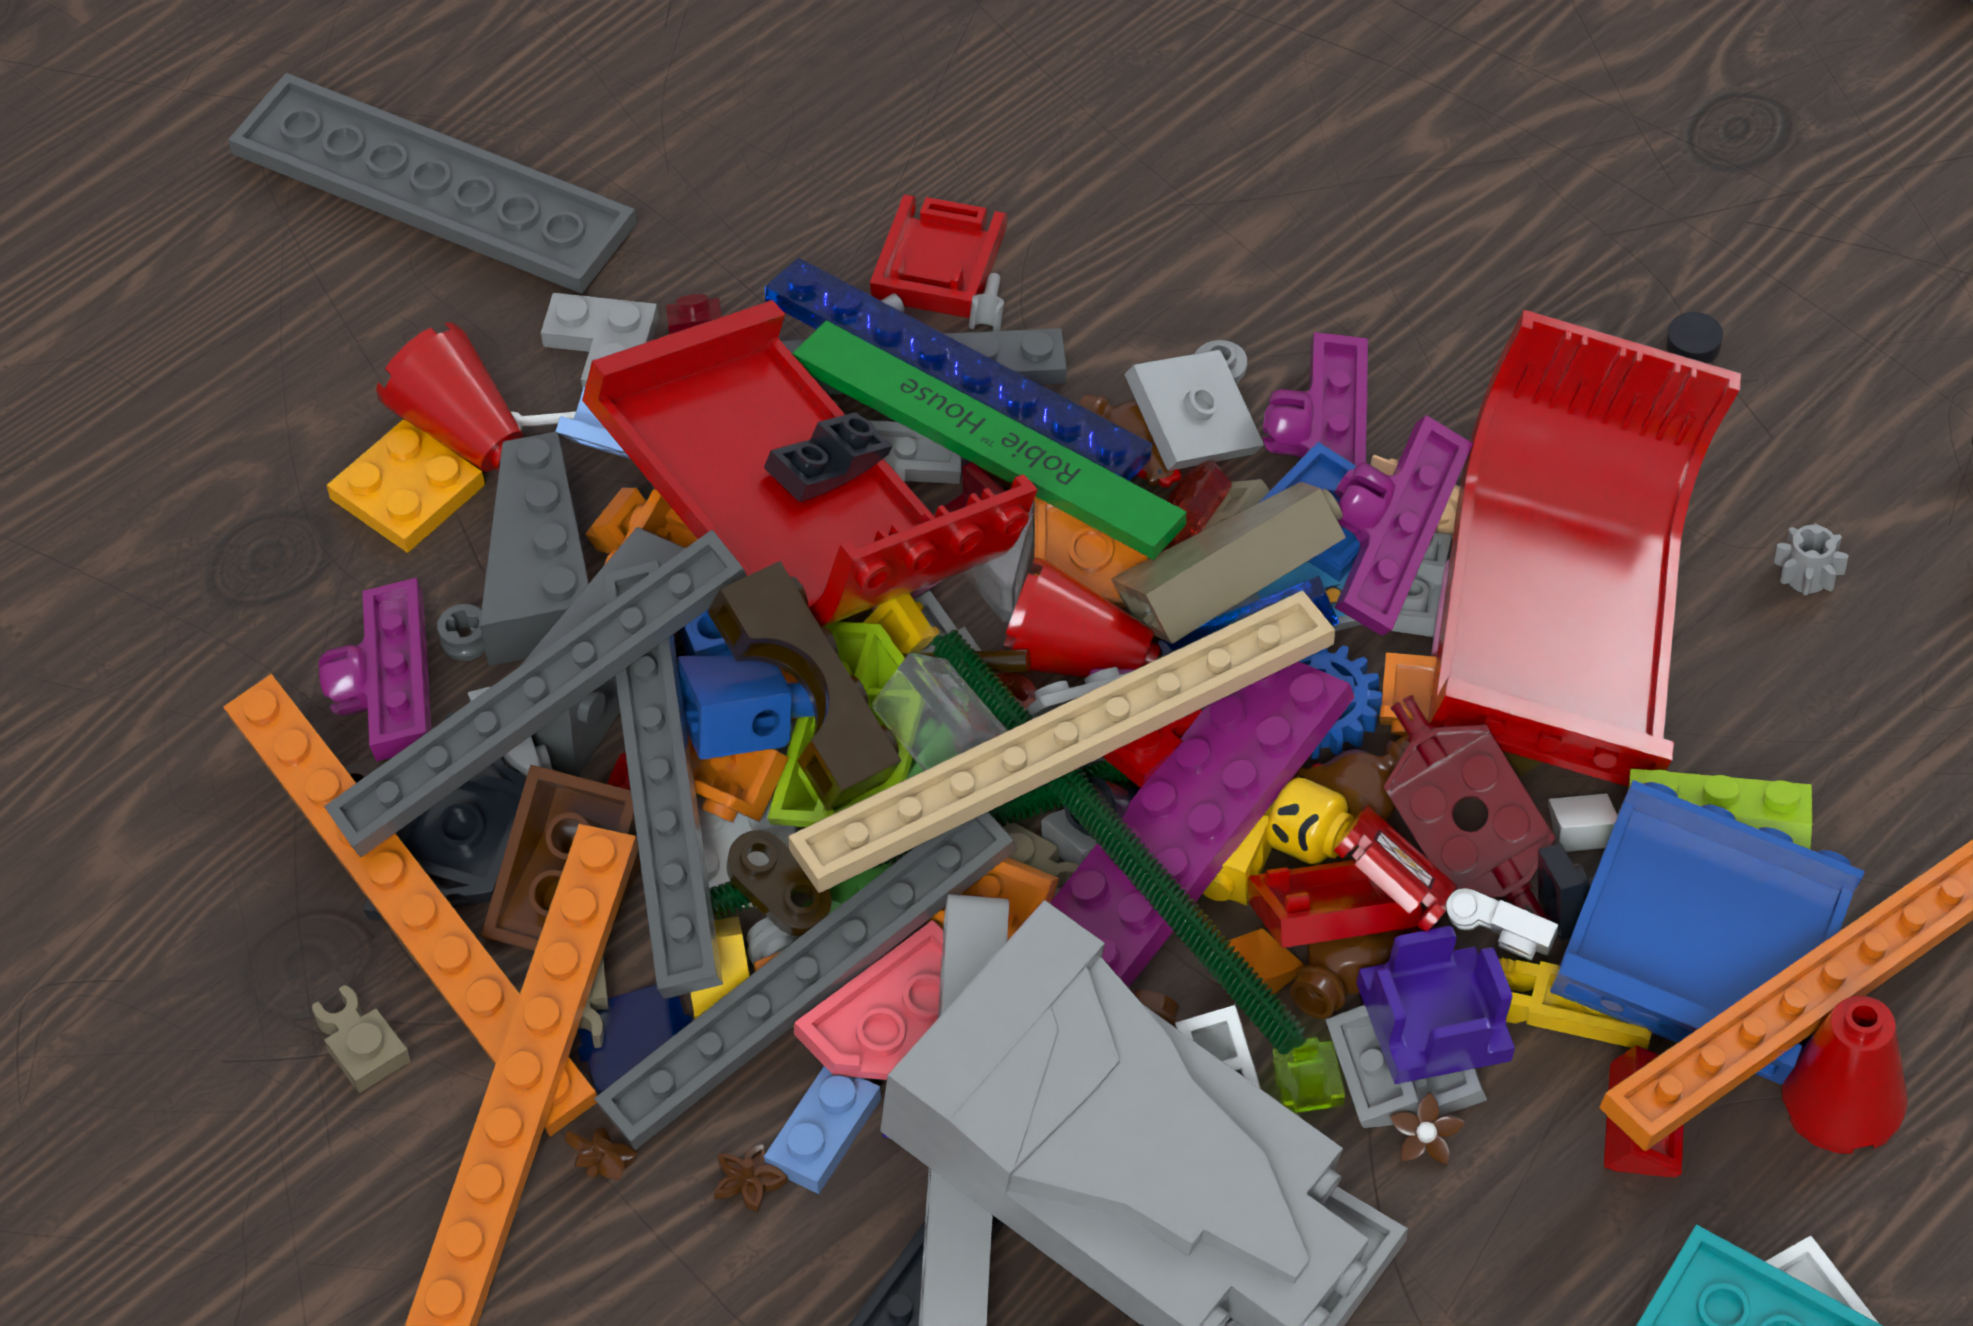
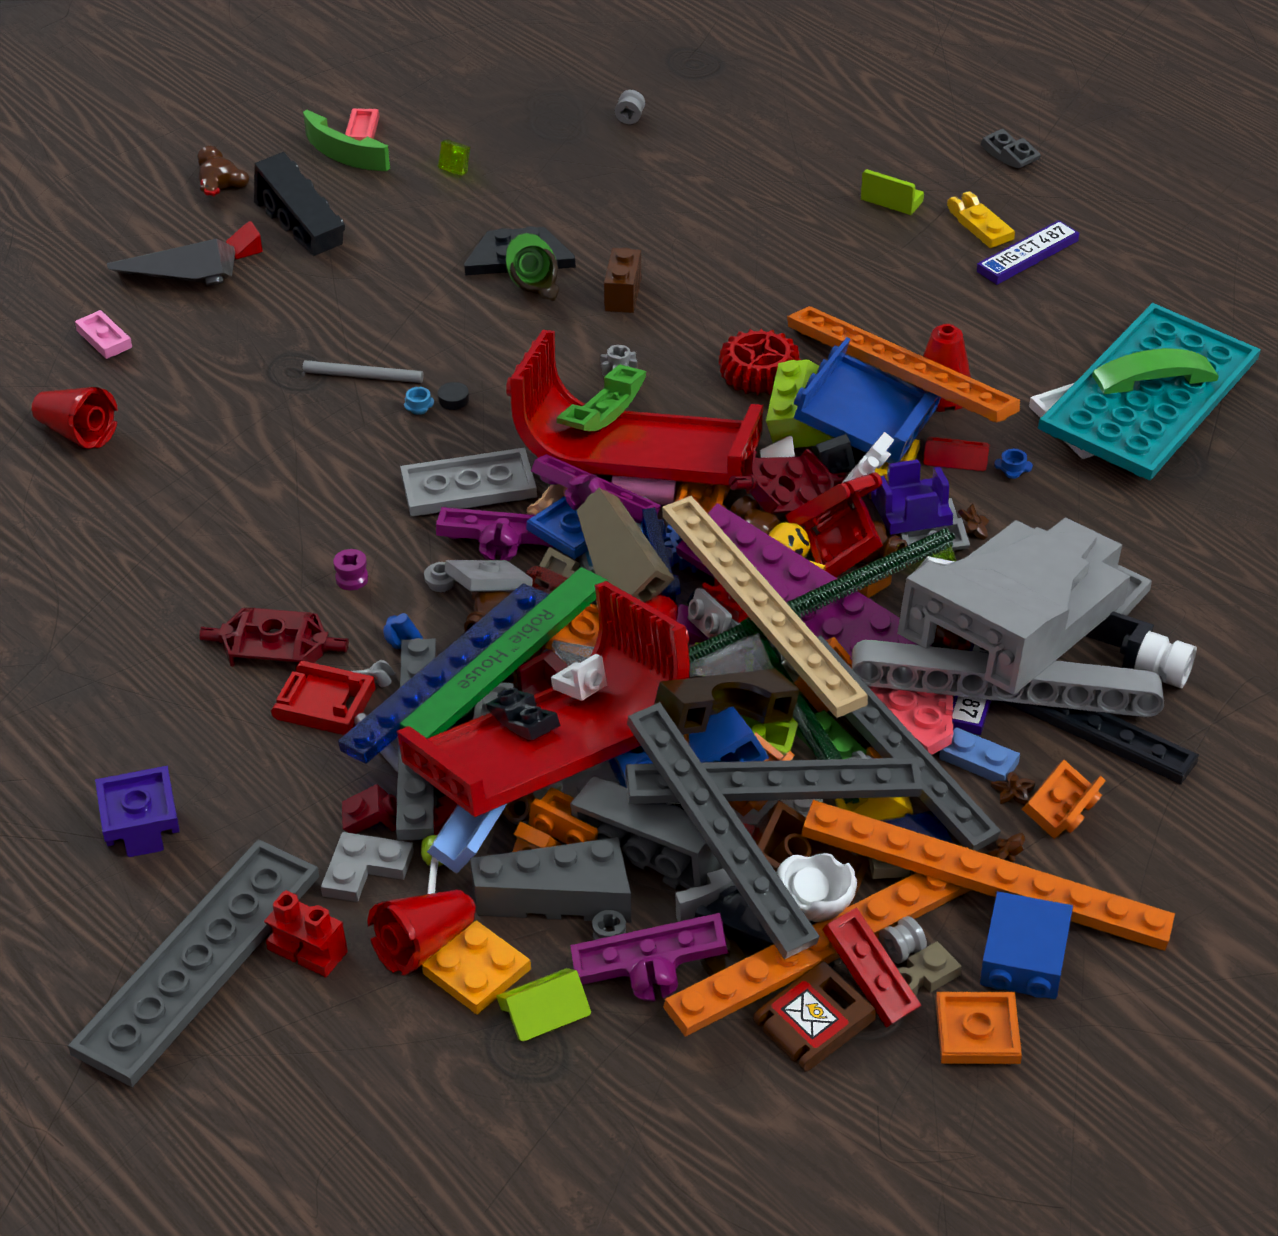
camera: 90 degrees left, 10 degrees down
(234, 1101) = (978, 1028): none -> orange plate
(267, 876) = (810, 1019): none -> reddish brown container
(326, 559) = (545, 1003): none -> lime panel
(332, 942) = (871, 967): none -> red plate
(380, 1162) = (1026, 945): none -> blue panel
(406, 998) = (903, 939): none -> light grey wheel
(453, 275) = (306, 934): none -> red hips
(462, 847) = (819, 884): none -> white piece
(687, 70) = (137, 809): none -> dark purple panel
(703, 1238) = (1062, 798): none -> orange bracket
(773, 884) = (841, 741): dark brown plate -> none
(902, 507) = (582, 678): none -> white bracket
(1066, 208) = (298, 638): none -> dark red plate
(1081, 324) = (399, 629): none -> blue plate
(1220, 248) = (350, 569): none -> magenta wheel
(1439, 350) = (468, 481): none -> light grey plate
(1618, 1192) = (1013, 463): none -> blue plate
(1655, 535) = (618, 392): none -> bright green slope
(1666, 290) = (418, 400): none -> dark azure plate
(1743, 213) = (363, 371): none -> light grey bar
(1889, 791) = (753, 359): none -> red gear

